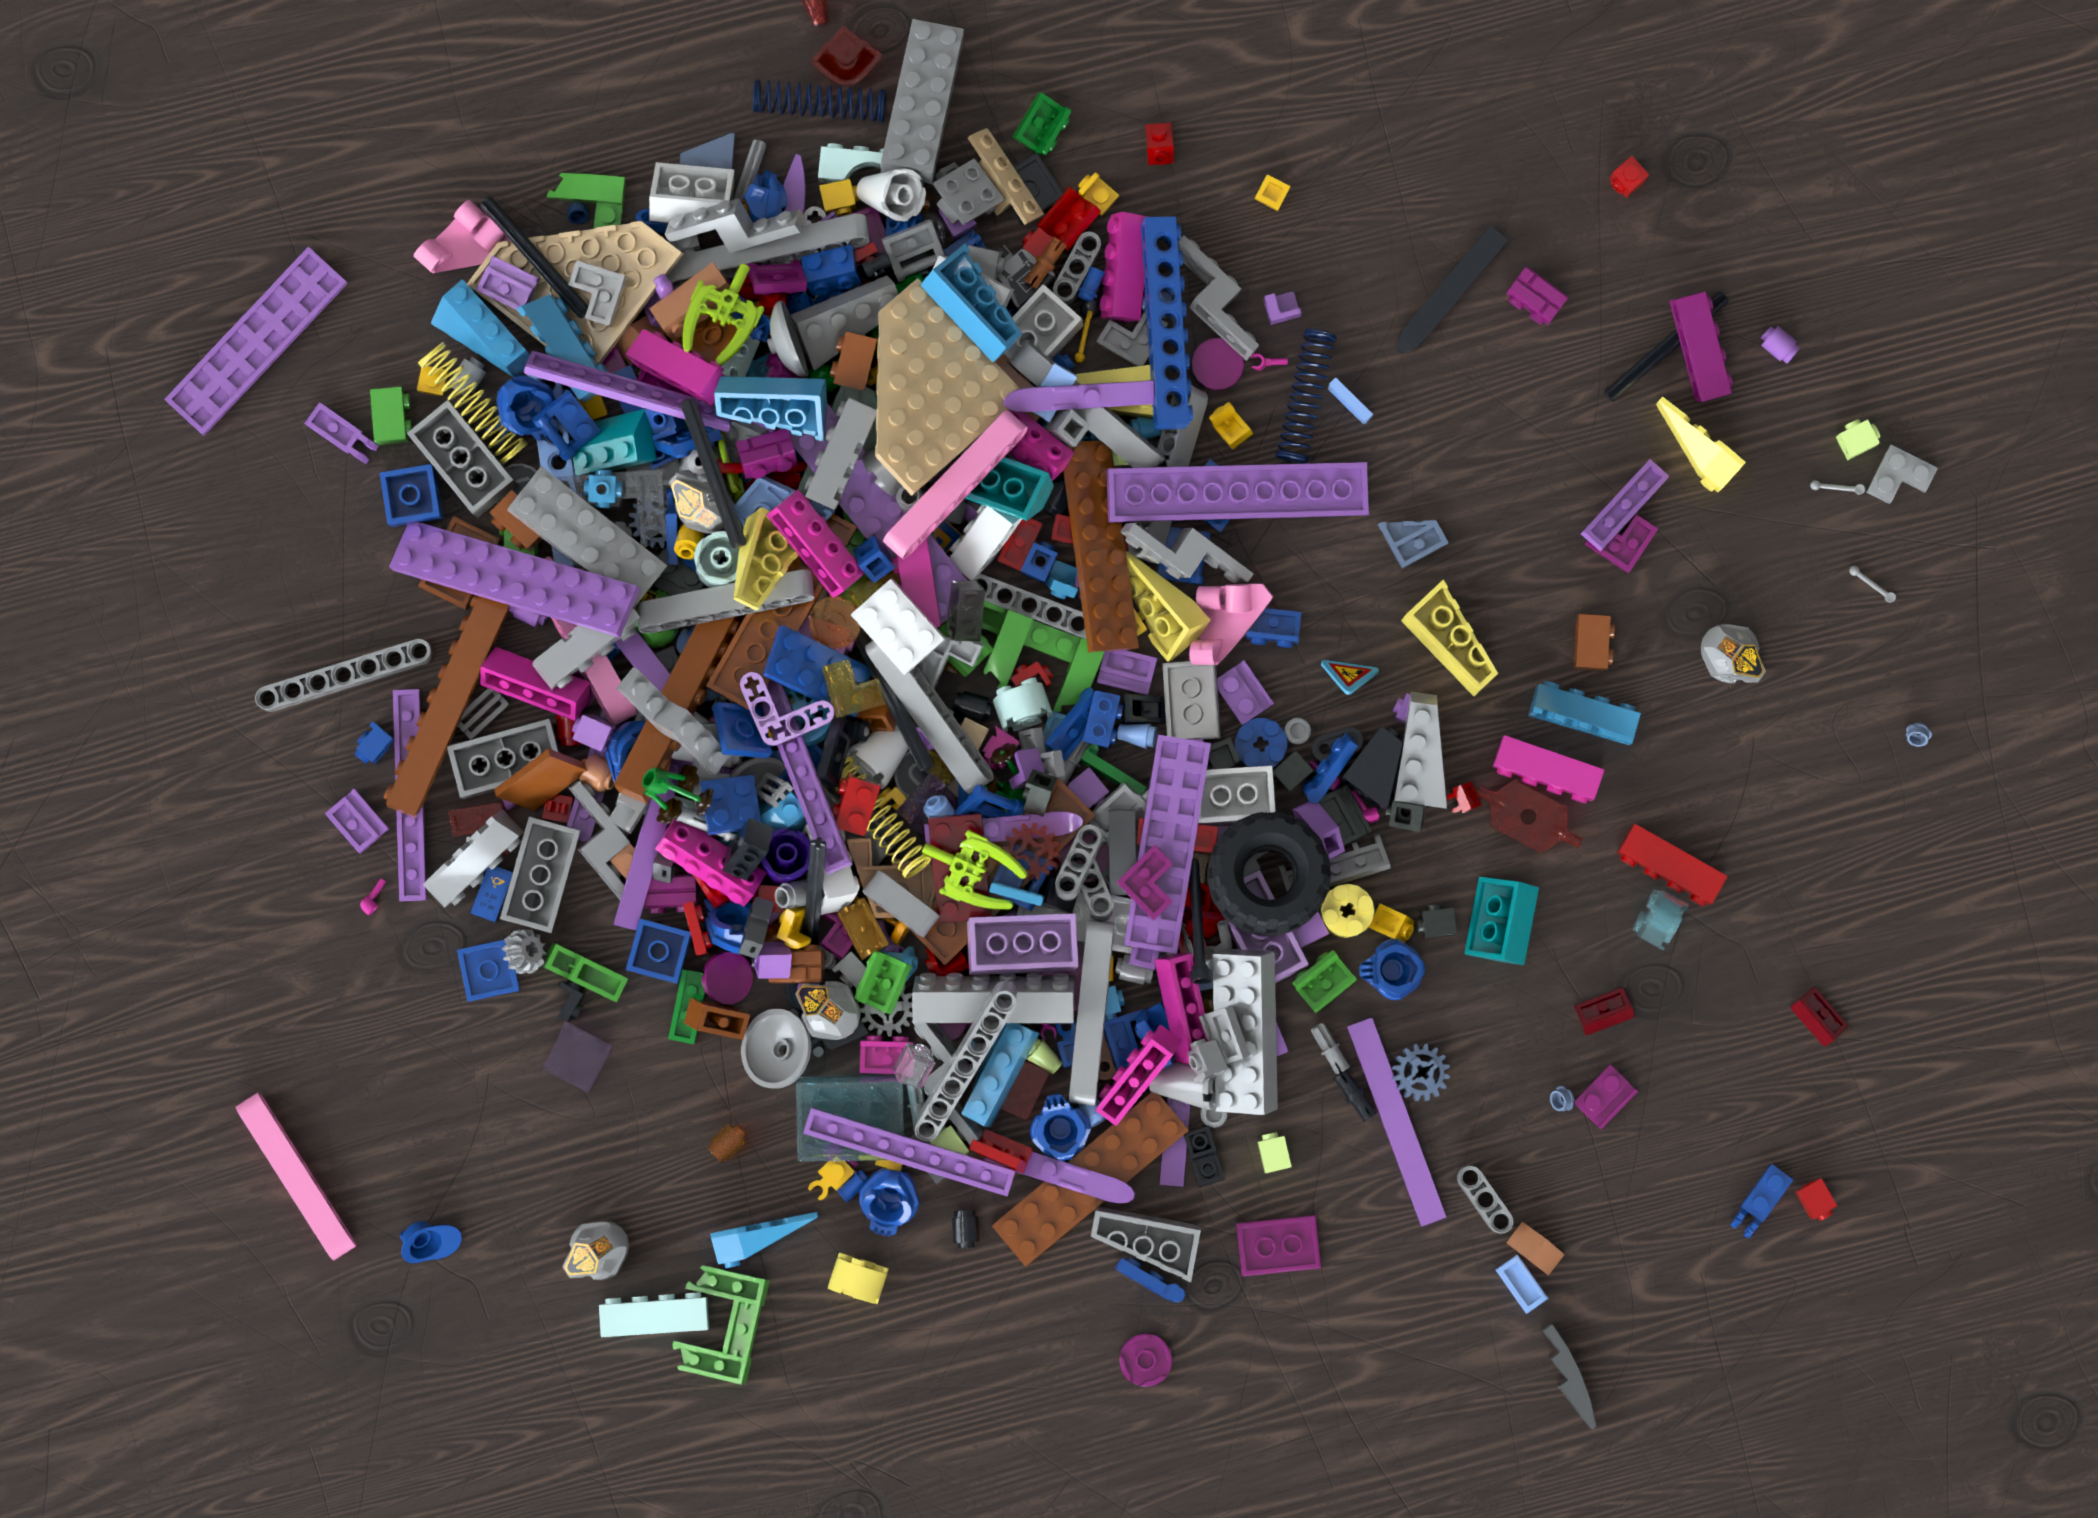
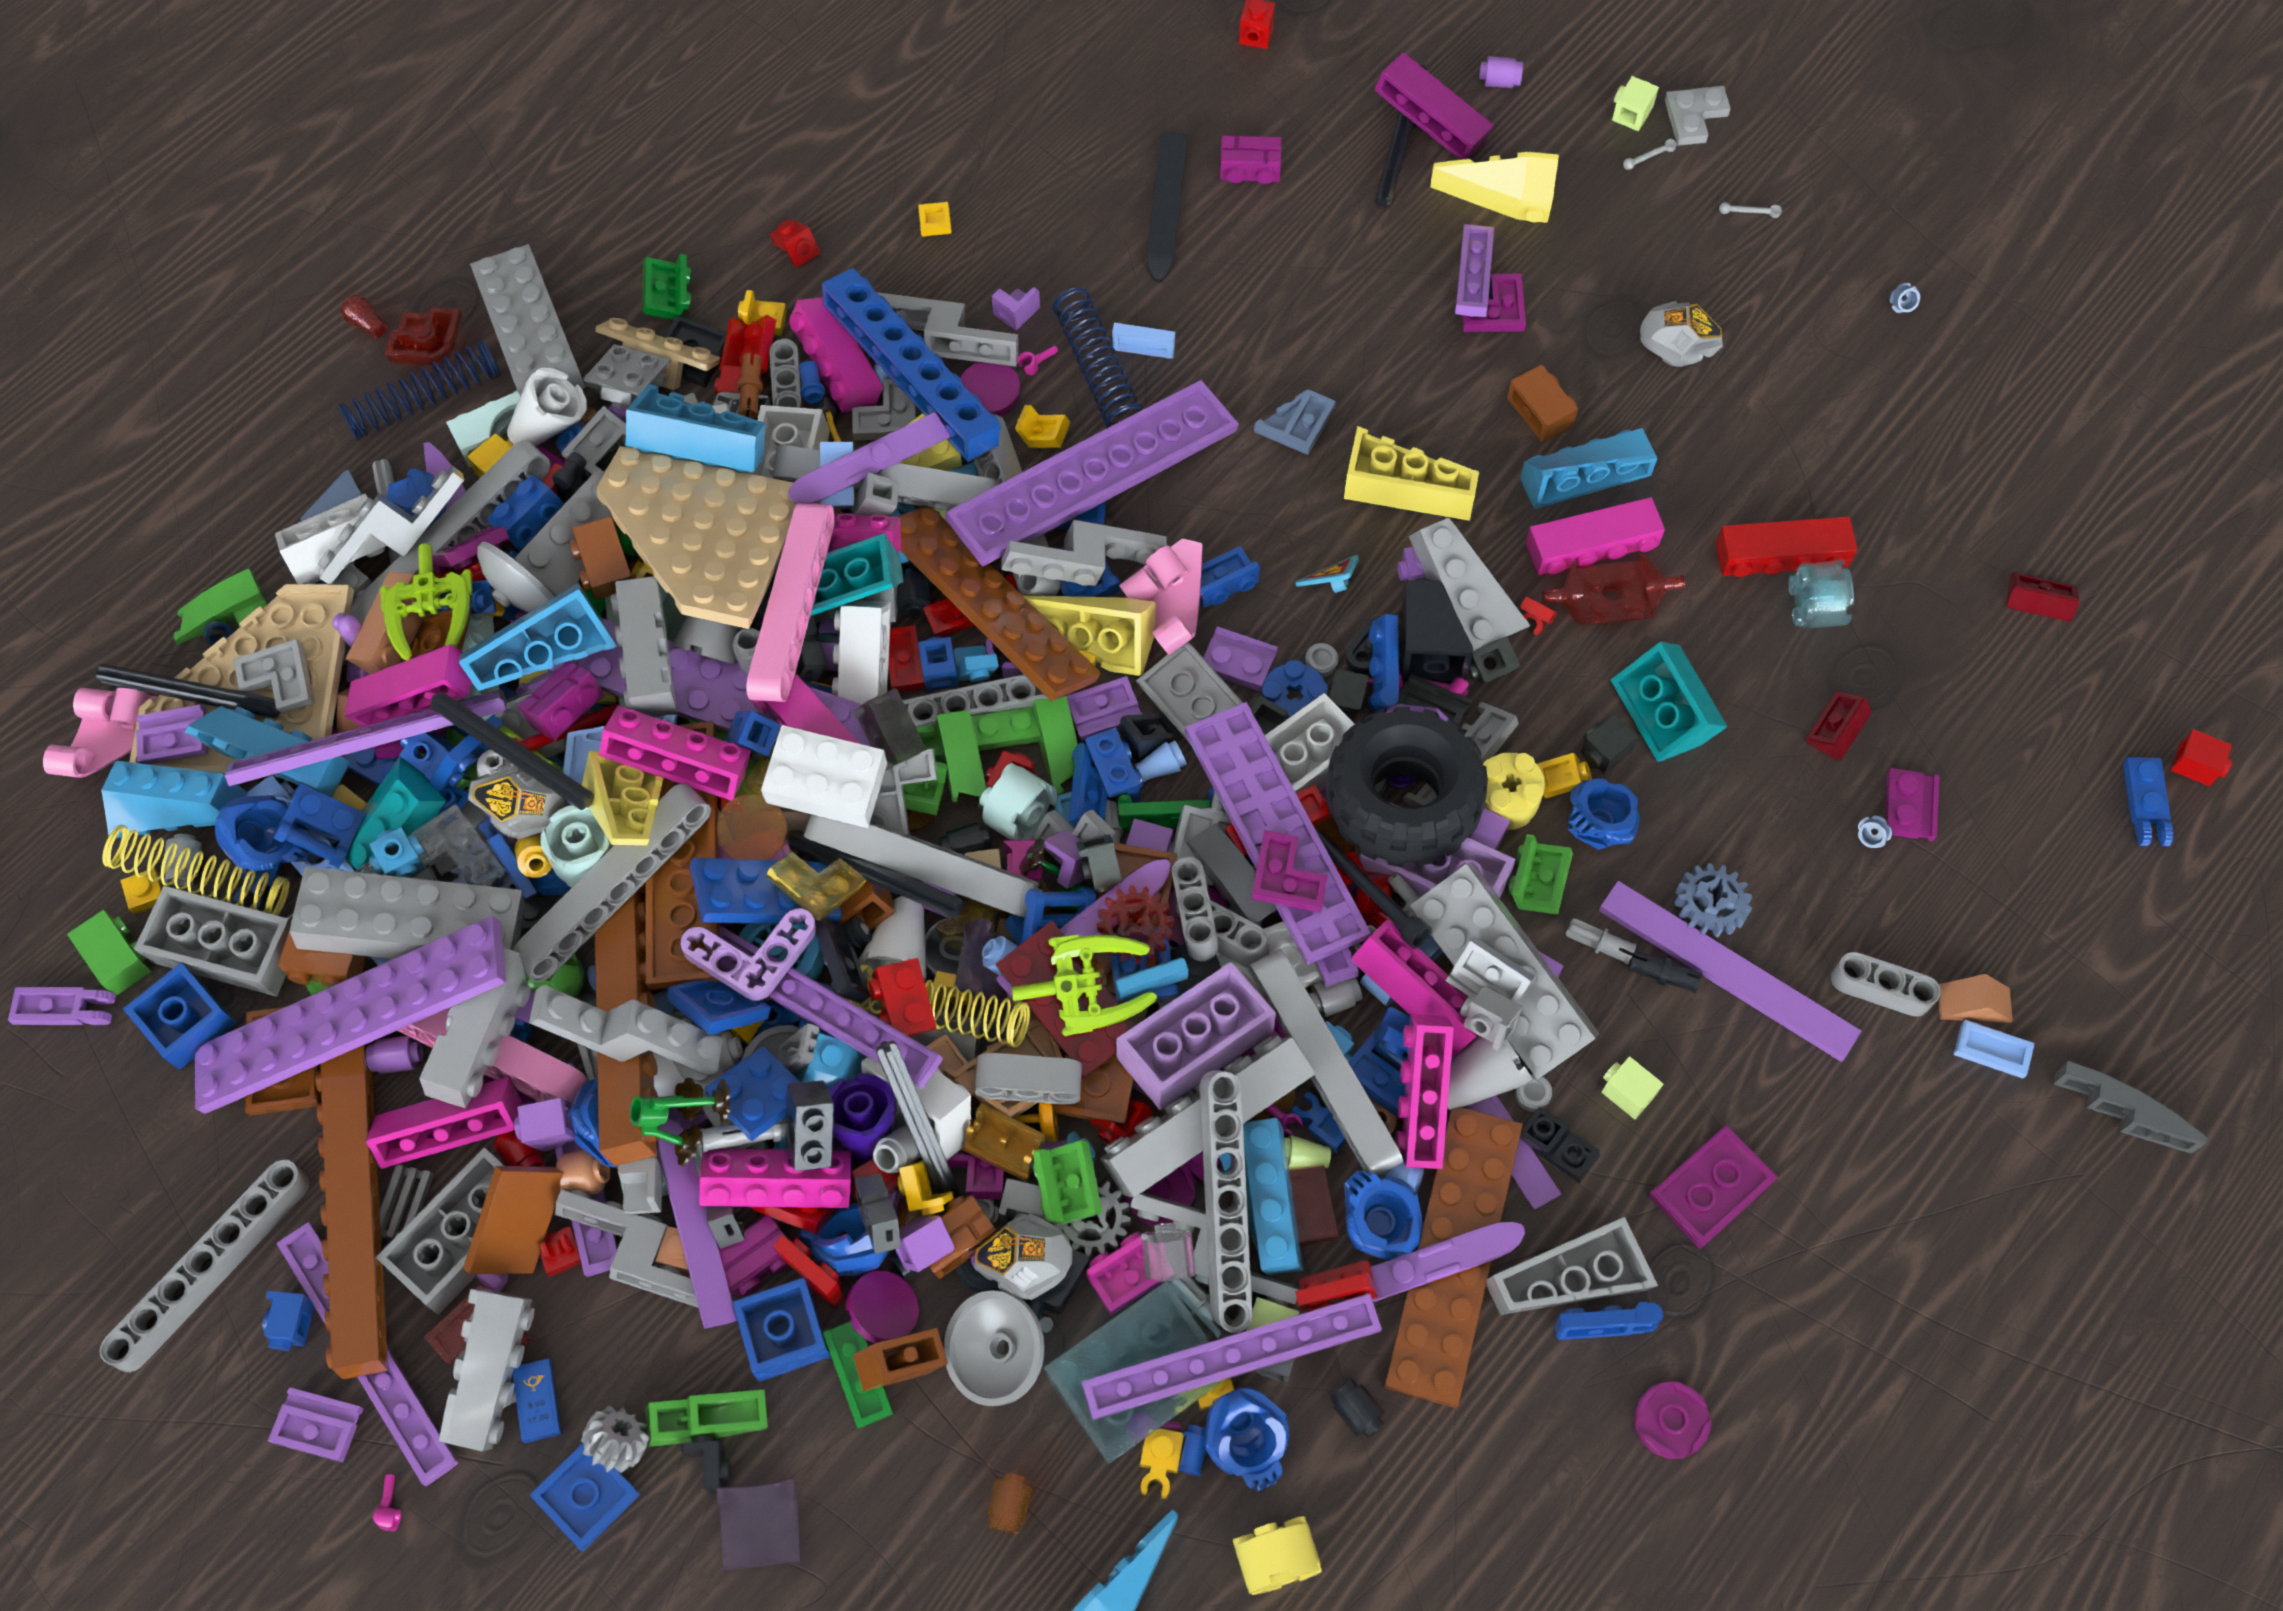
camera: 35 degrees left, 20 degrees down
(540, 874) = (579, 1336): light grey slope -> none

